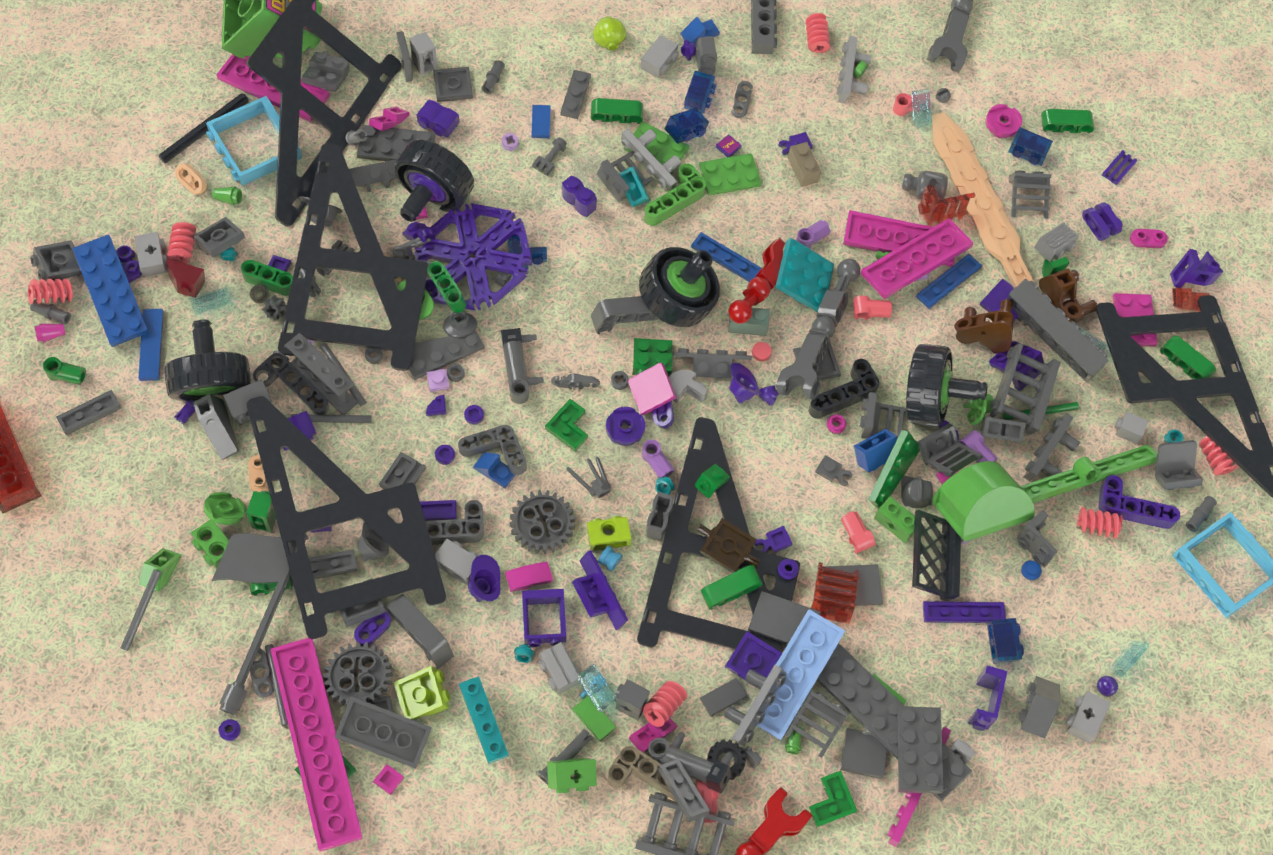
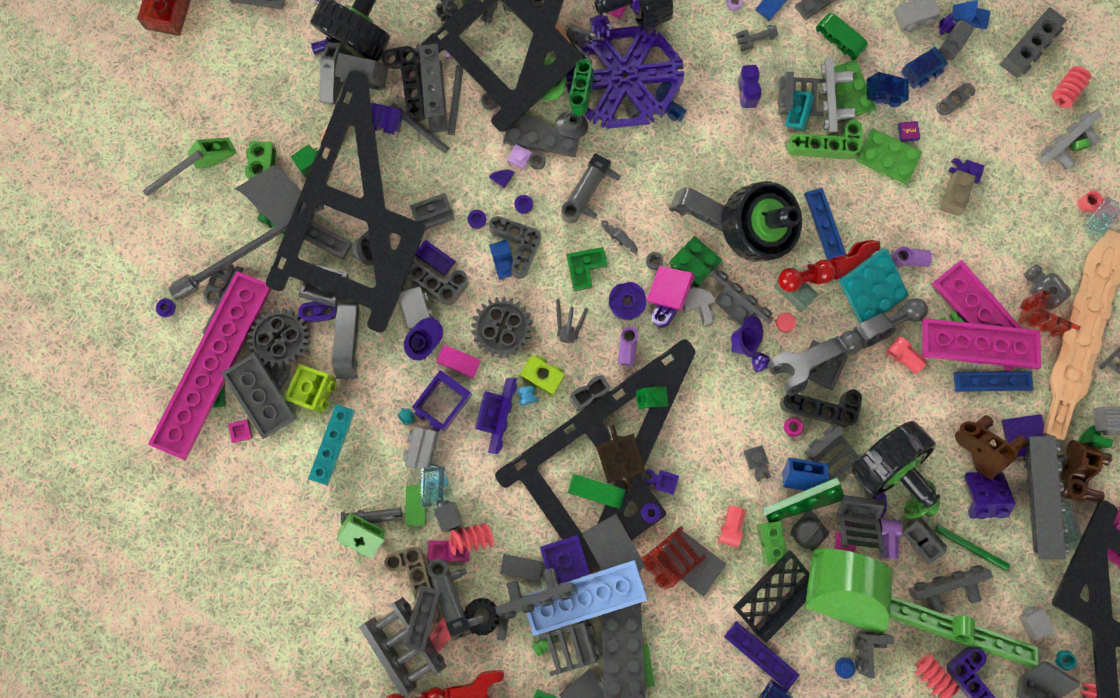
camera: 45 degrees right, 15 degrees up
(224, 508) = (287, 139): bright green tile -> none
(660, 485) = (616, 371): teal plate -> none
(1043, 387) = (981, 540): dark grey fence -> none

